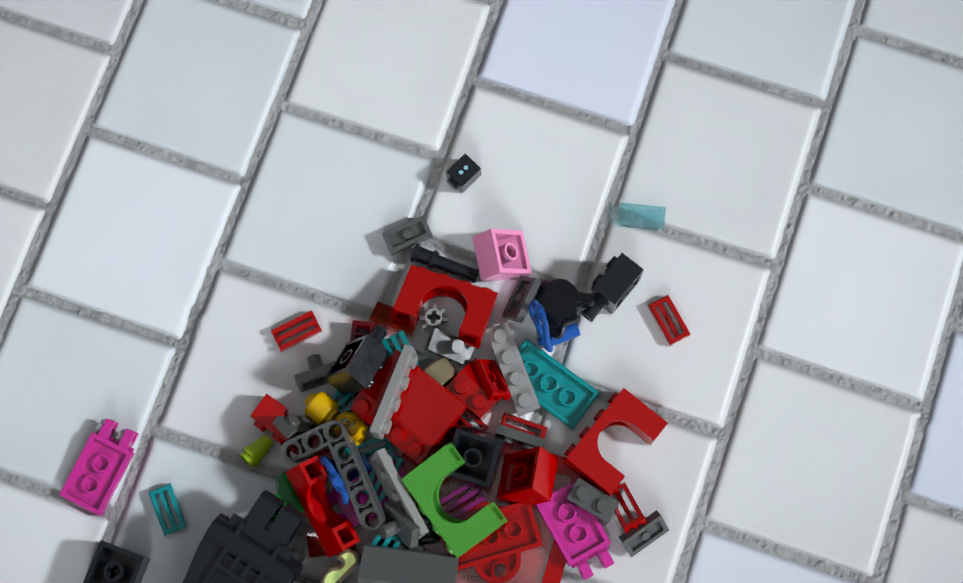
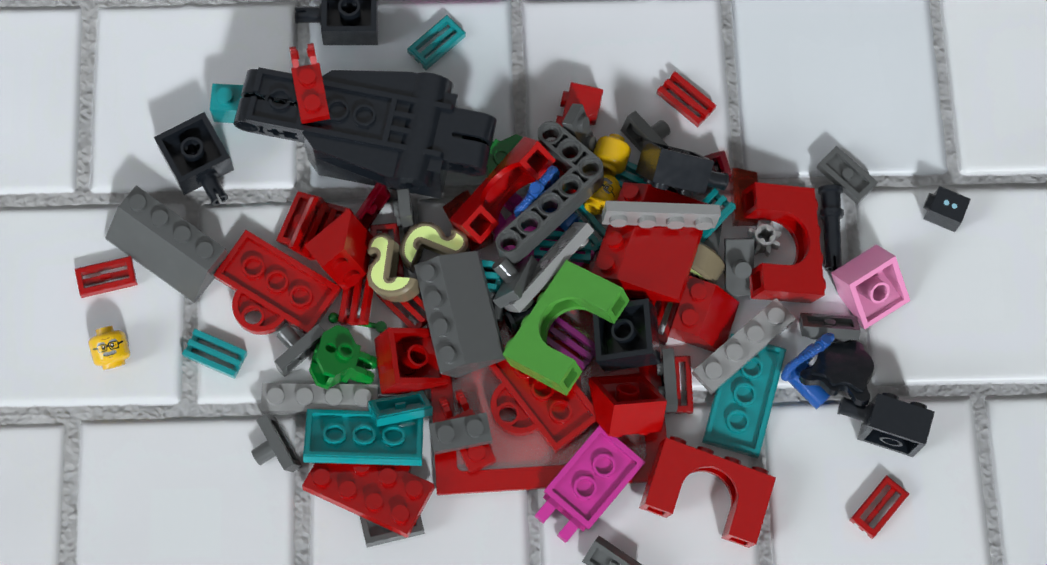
camera: 60 degrees right, 5 degrees down
(256, 451) = (536, 107): lime cone -> none
(491, 381) = (720, 320): red tile -> none
(592, 500) = (629, 488): dark grey plate -> none
(633, 522) = (623, 545): red tile -> none
(642, 216) = (989, 431): clear light blue tile -> none

